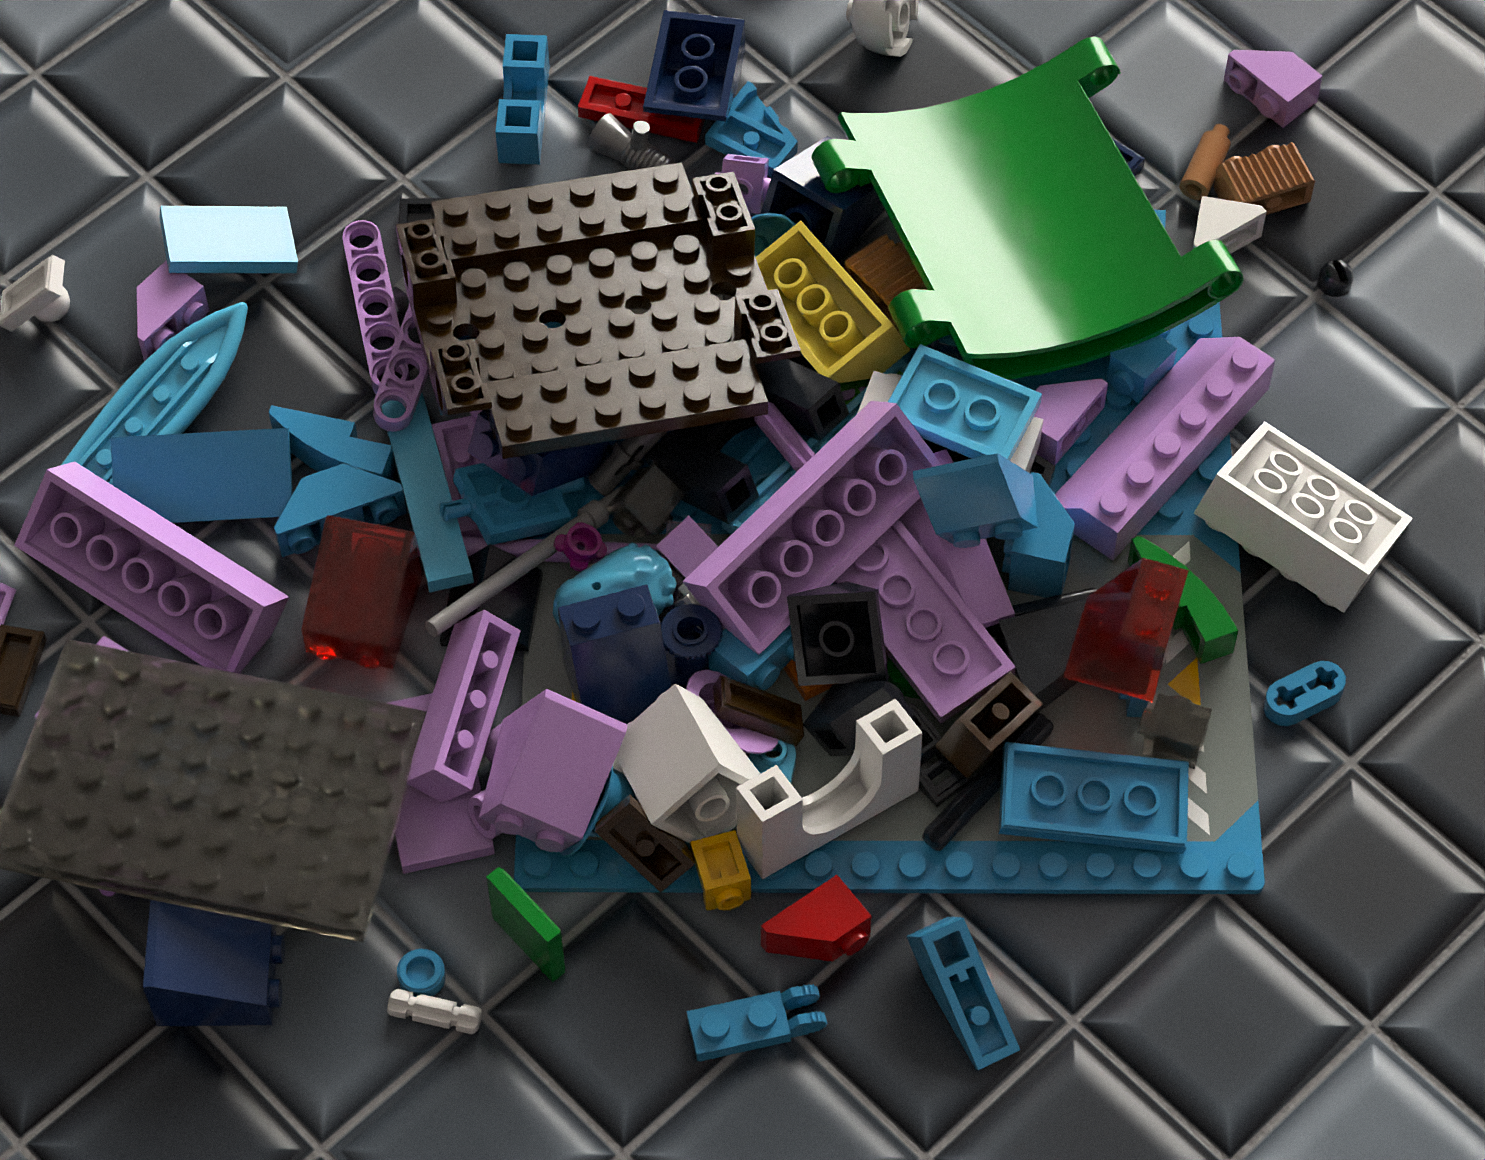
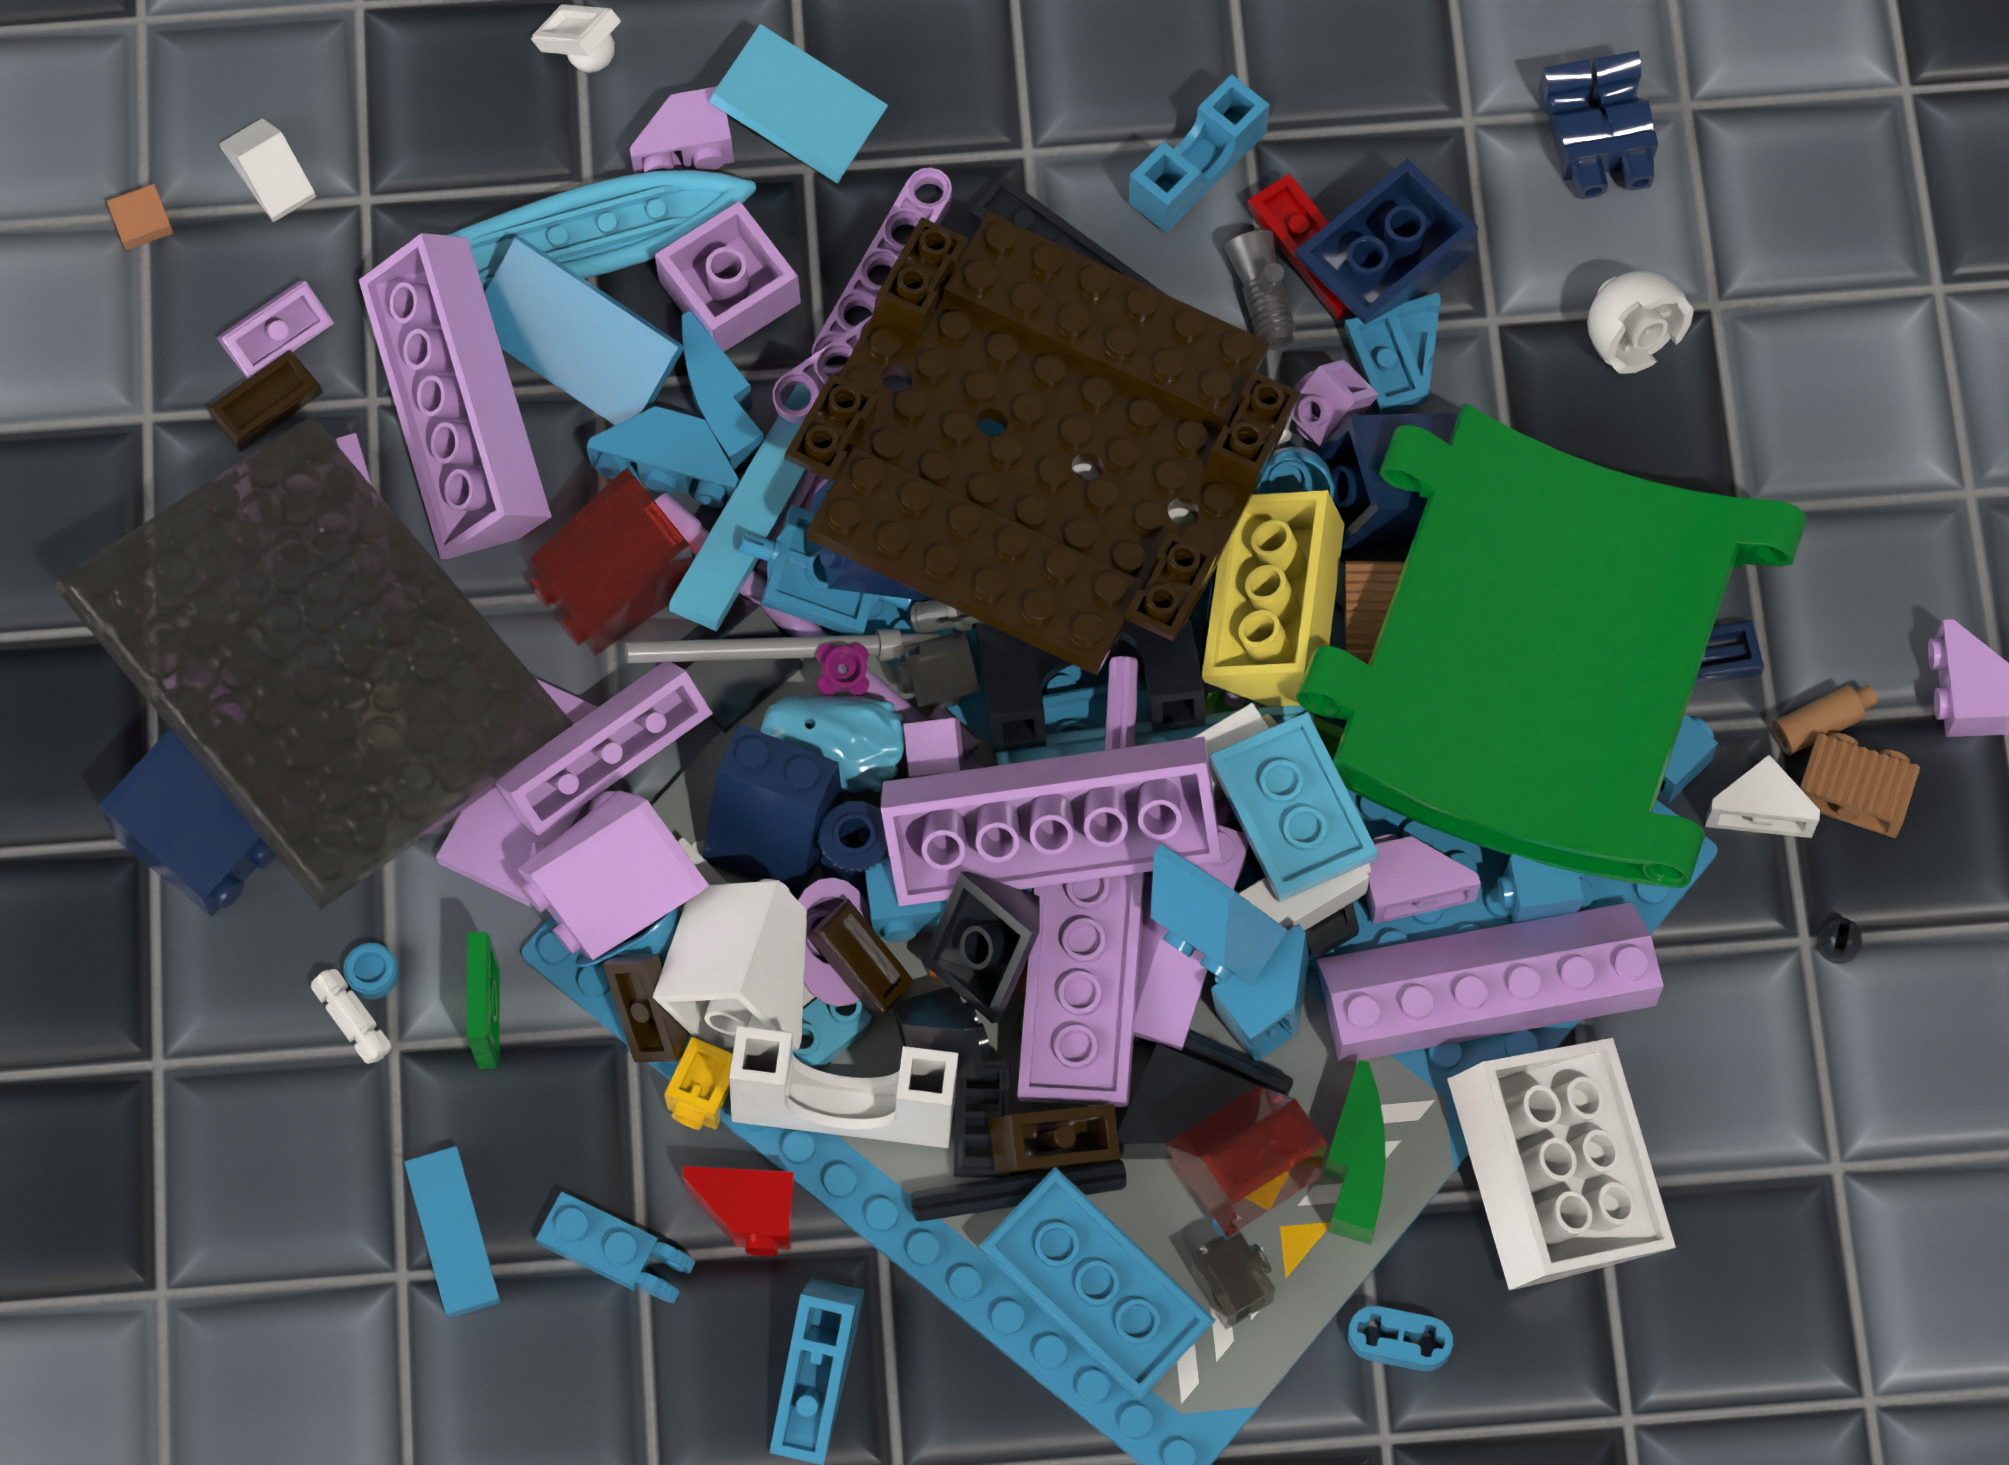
camera: 40 degrees right, 10 degrees up
(276, 367) = (728, 276): none -> lavender brick
(634, 1096) = (452, 1232): none -> dark azure tile

